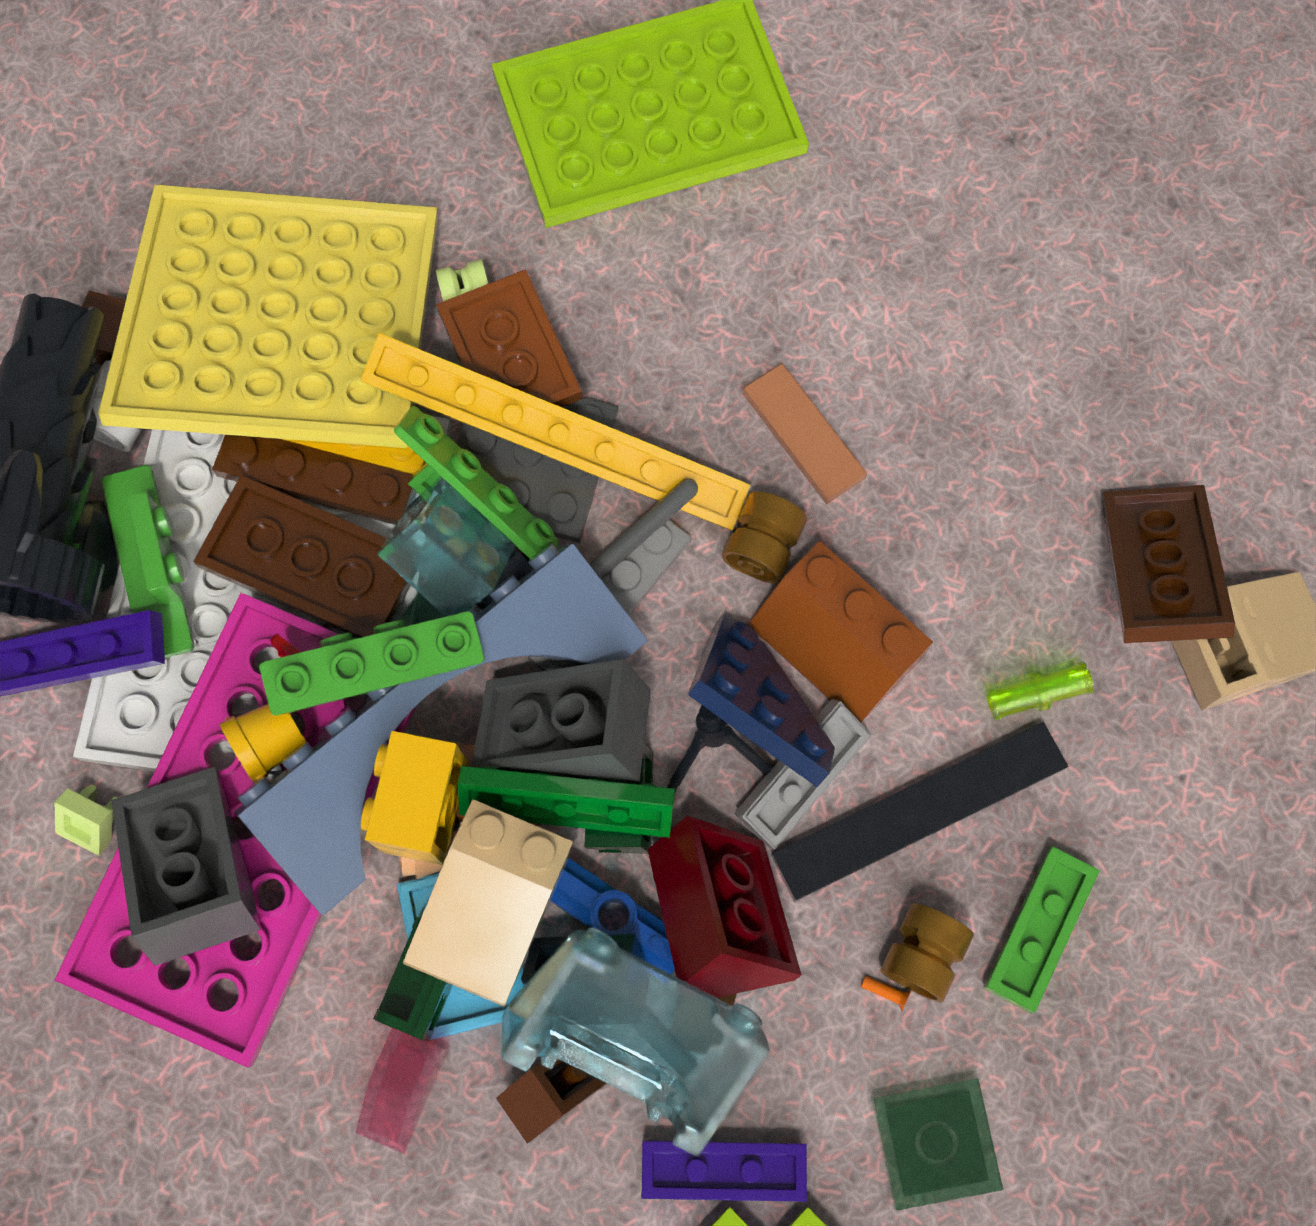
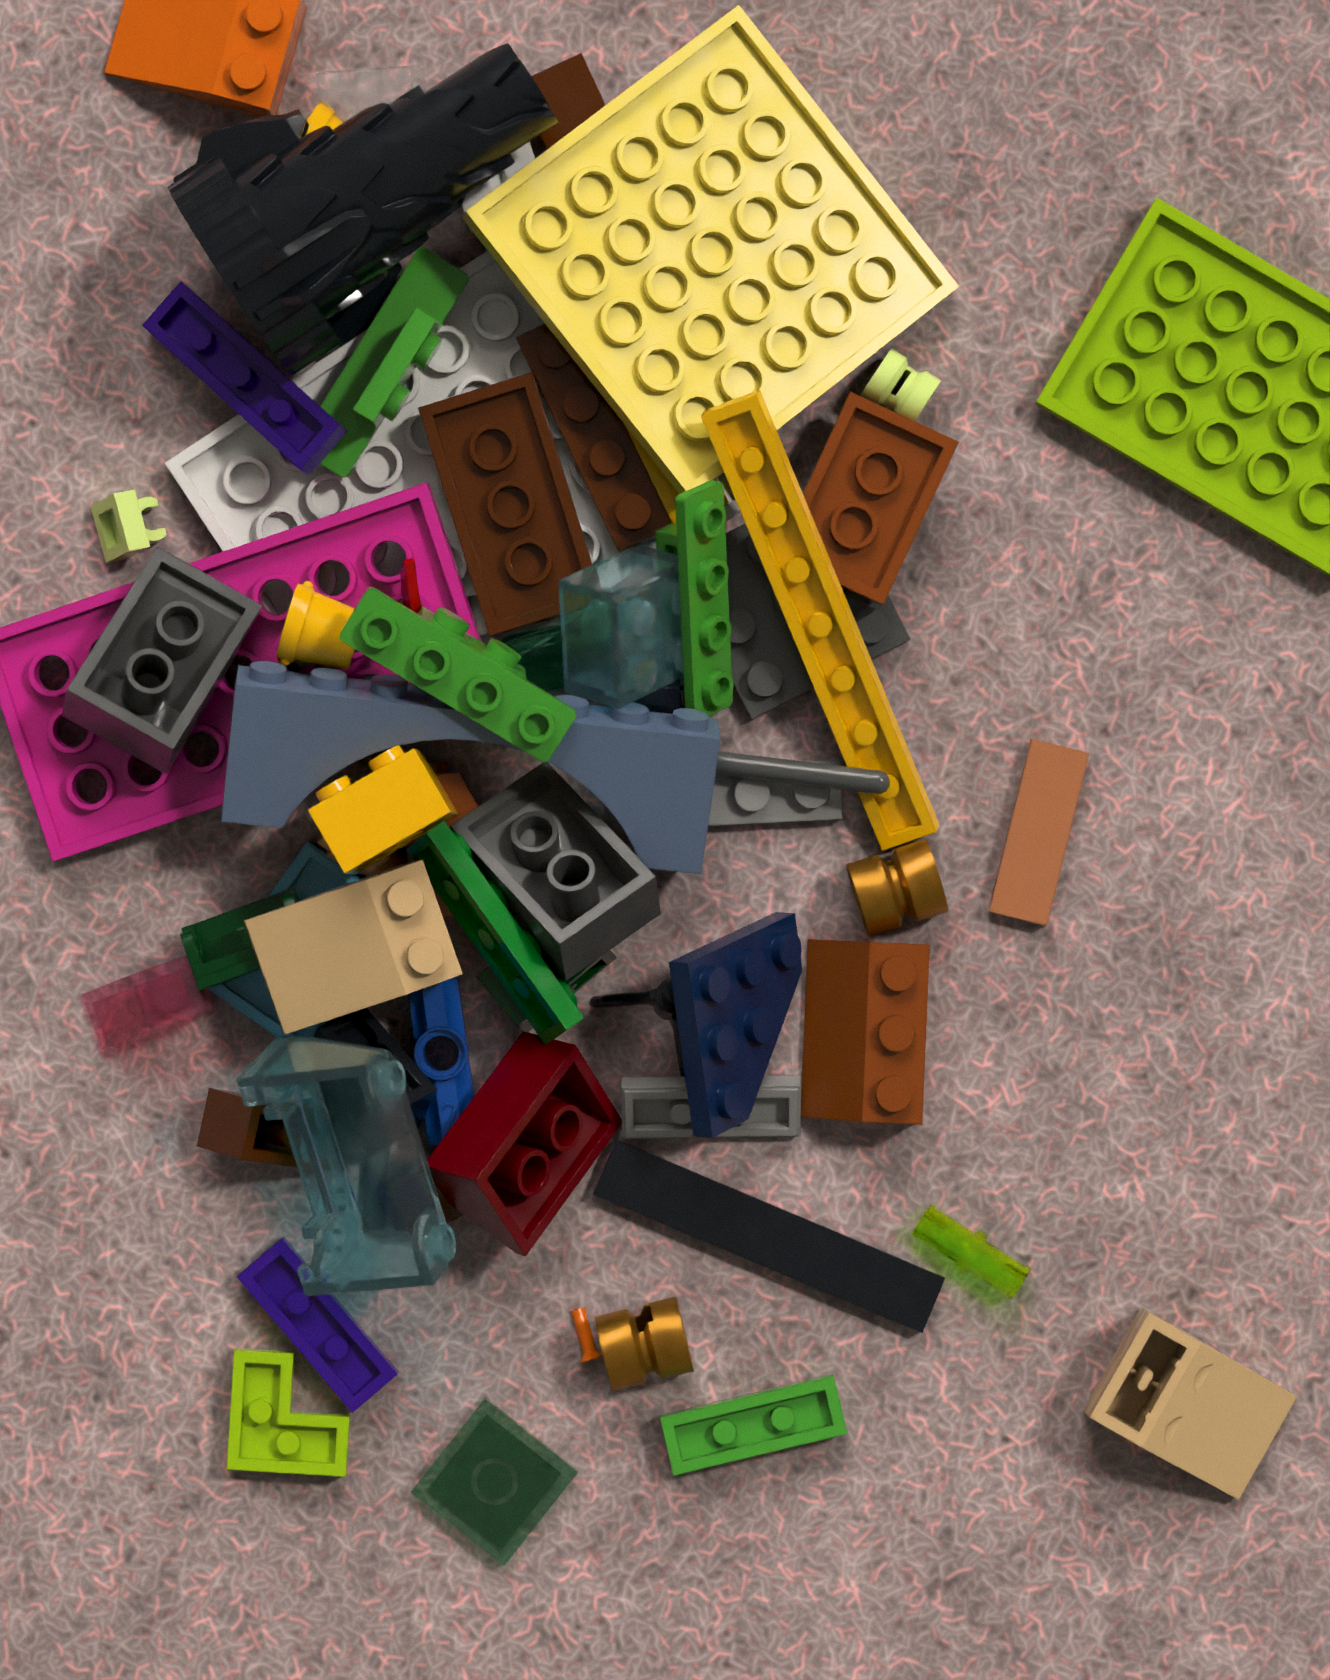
camera: 50 degrees right, 15 degrees up
(1167, 565) = (1178, 1270): reddish brown plate -> none

